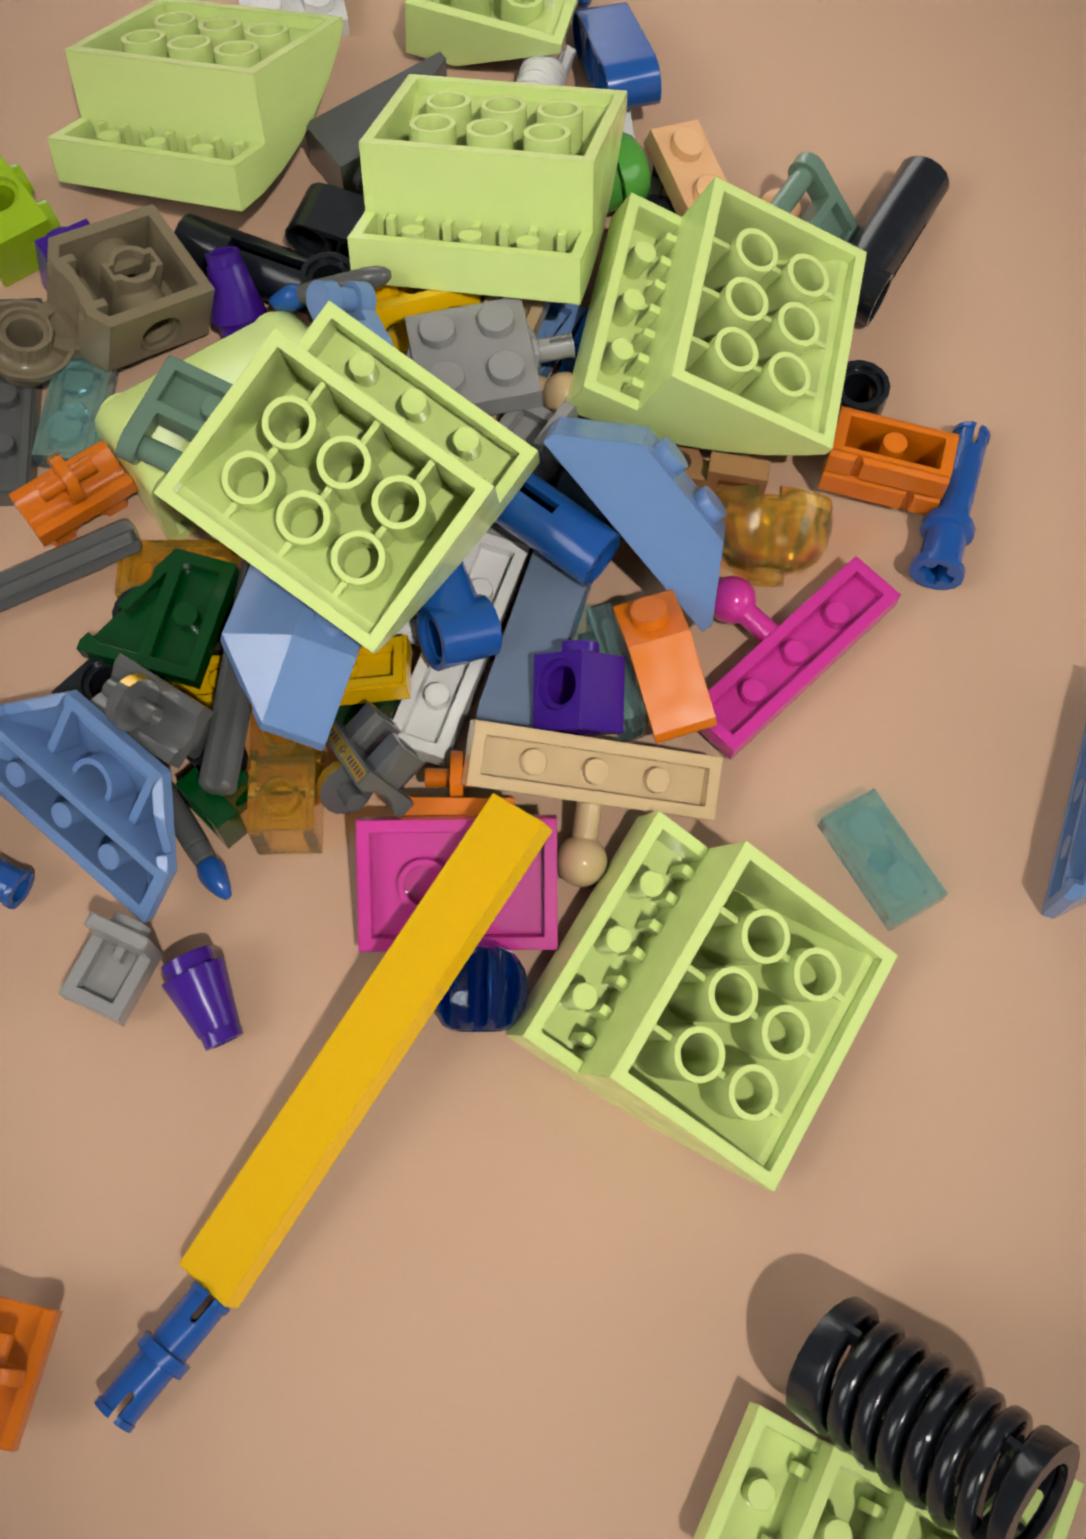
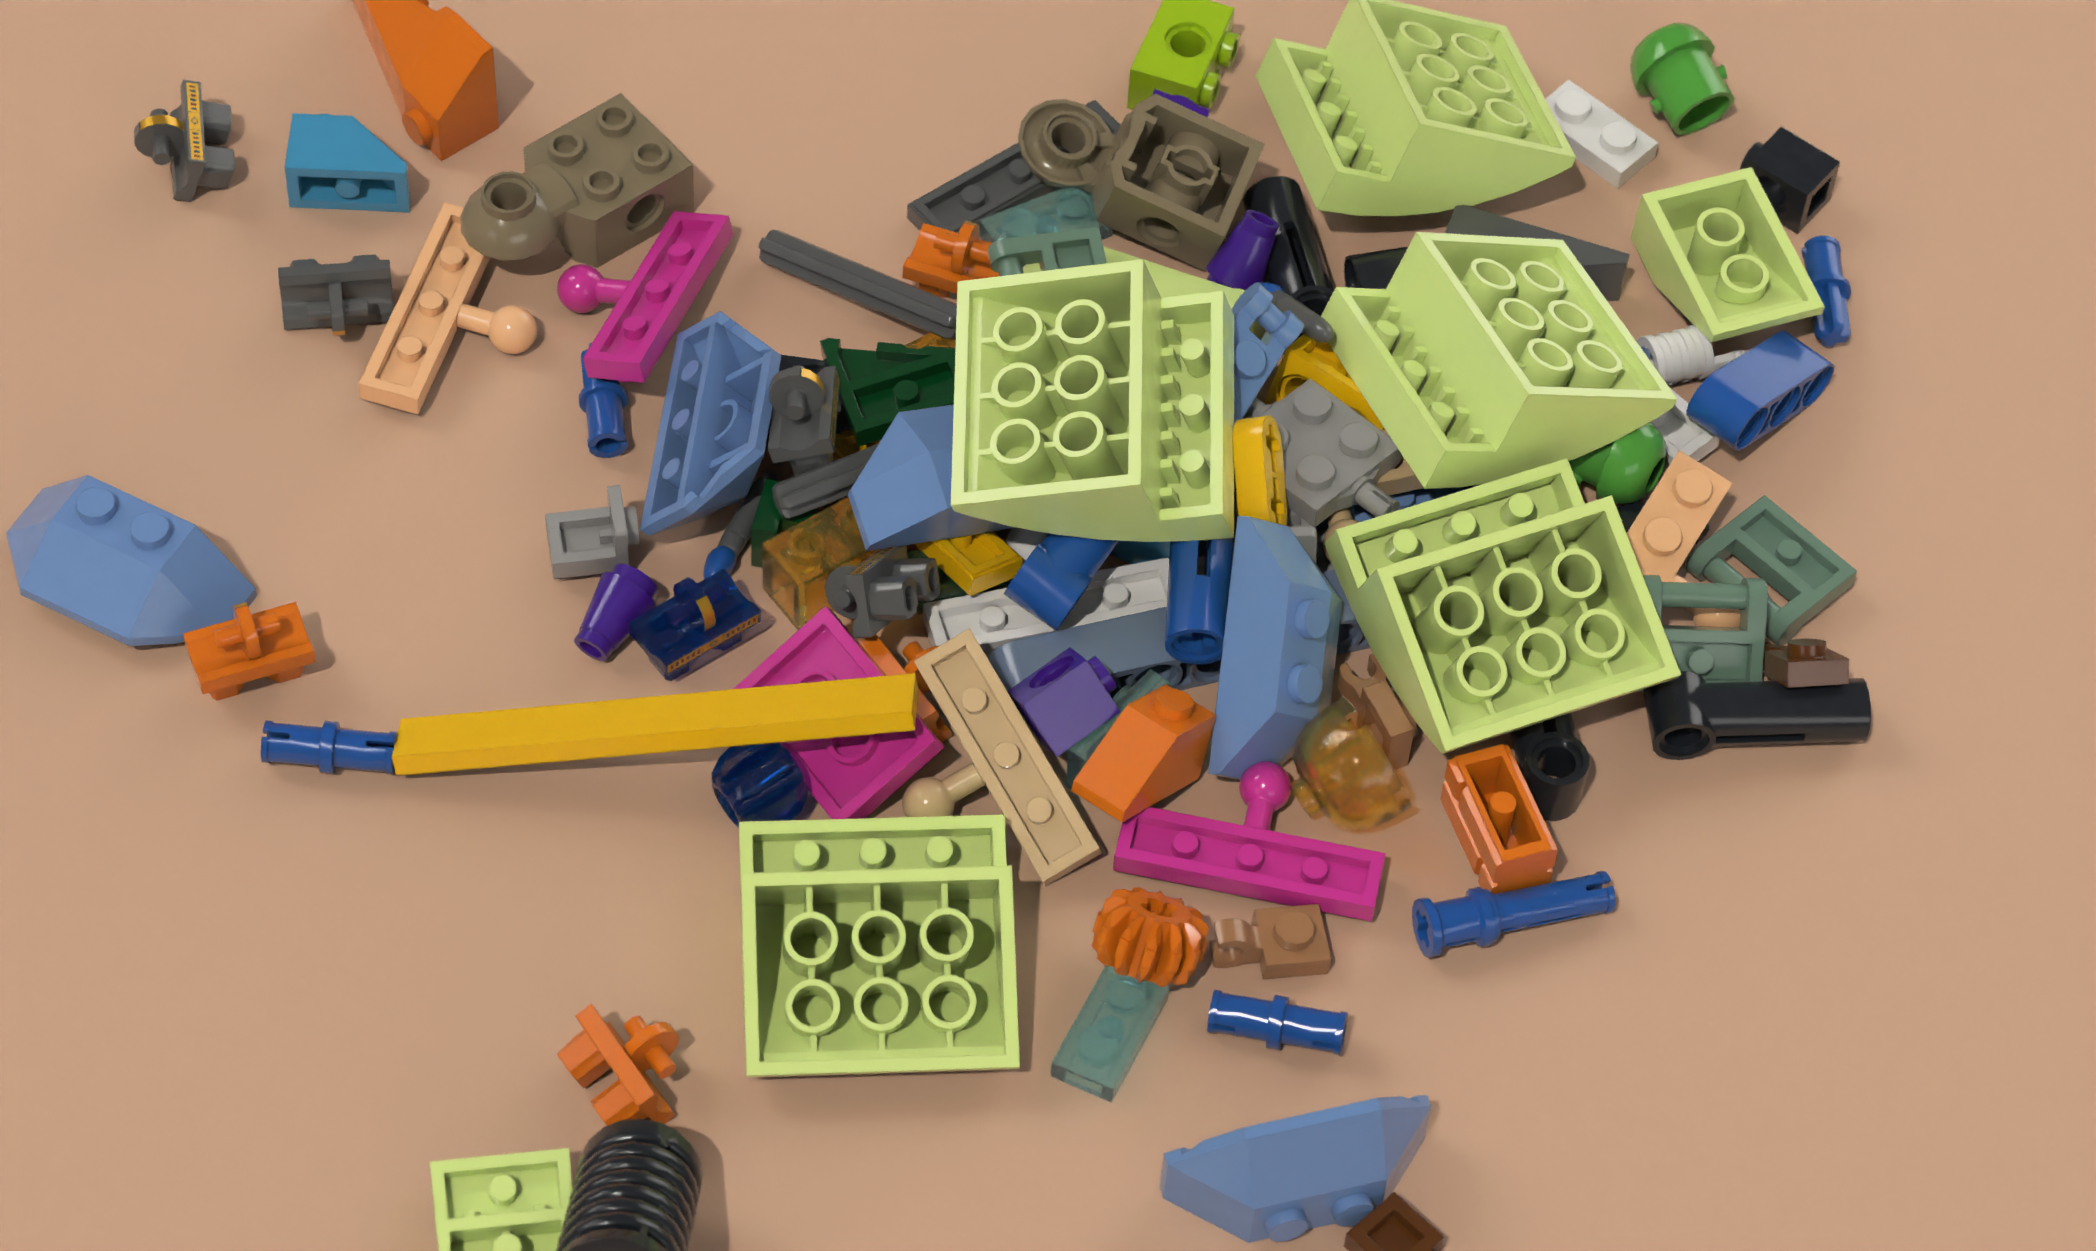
camera: 55 degrees right, 15 degrees down
(272, 938) = (693, 623): none -> clear blue hips
(488, 400) = (1259, 469): none -> yellow beam
(693, 1284) = (602, 1048): none -> orange hips
(760, 140) = (1782, 555): none -> sand green plate
(836, 774) = (1149, 936): none -> orange gear
(877, 682) = (1281, 939): none -> medium nougat plate
(881, 180) = (1805, 664): none -> reddish brown plate
(956, 731) = (1277, 1022): none -> blue pin

